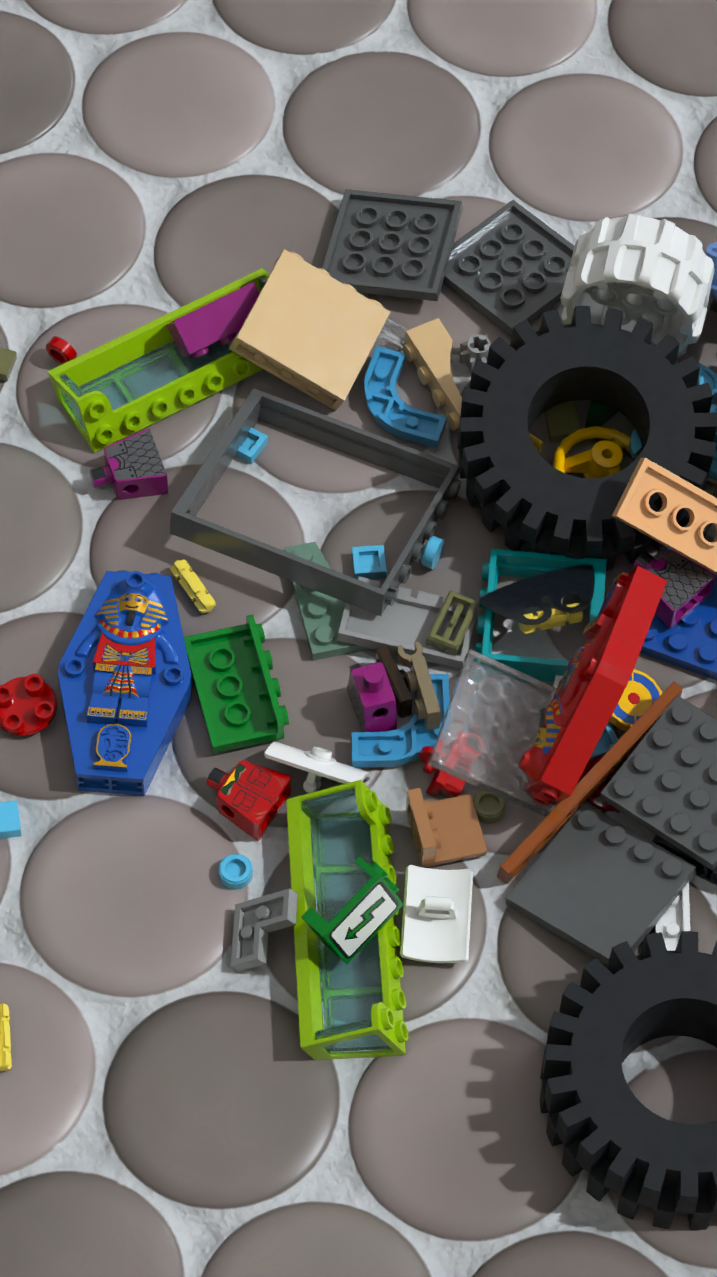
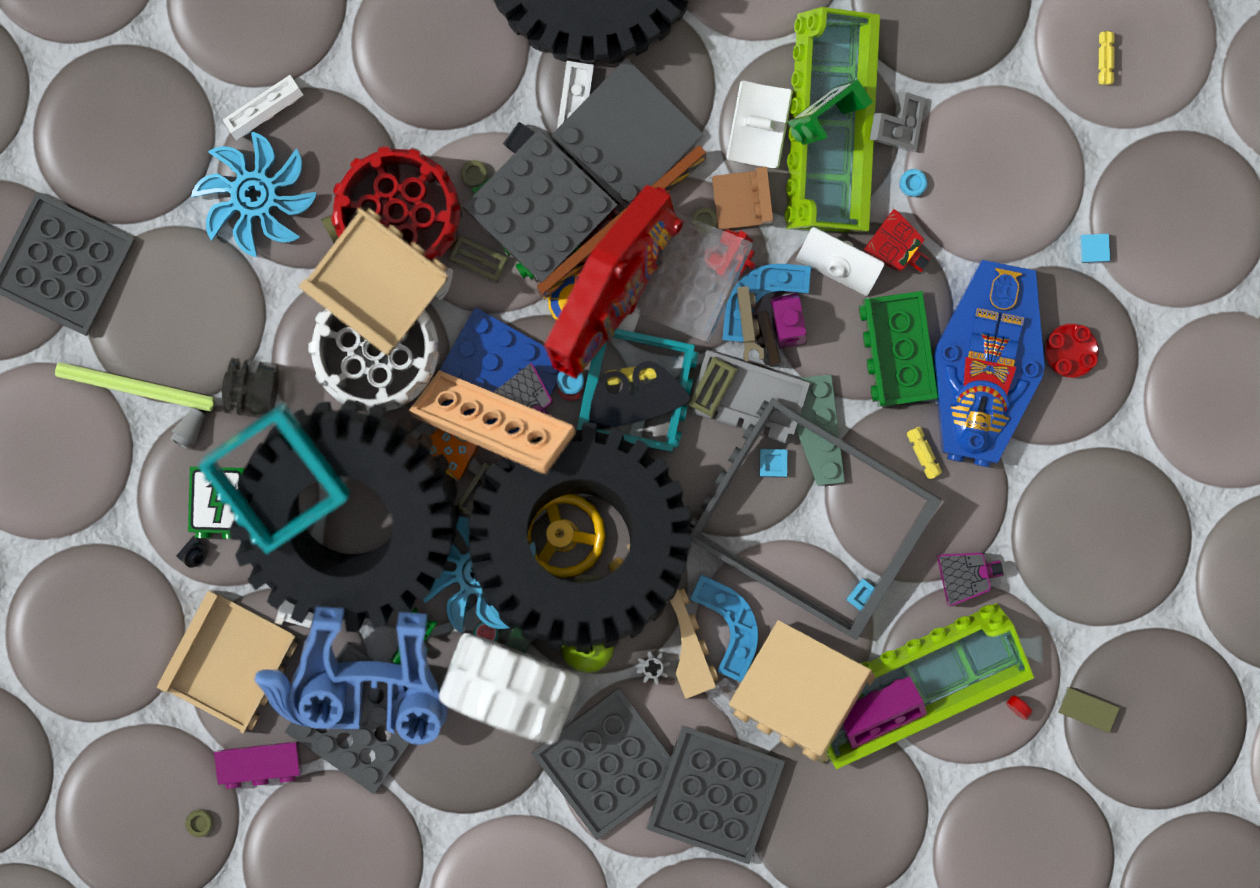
camera: 170 degrees left, 30 degrees up
(432, 552) = (719, 462): medium azure tile -> none

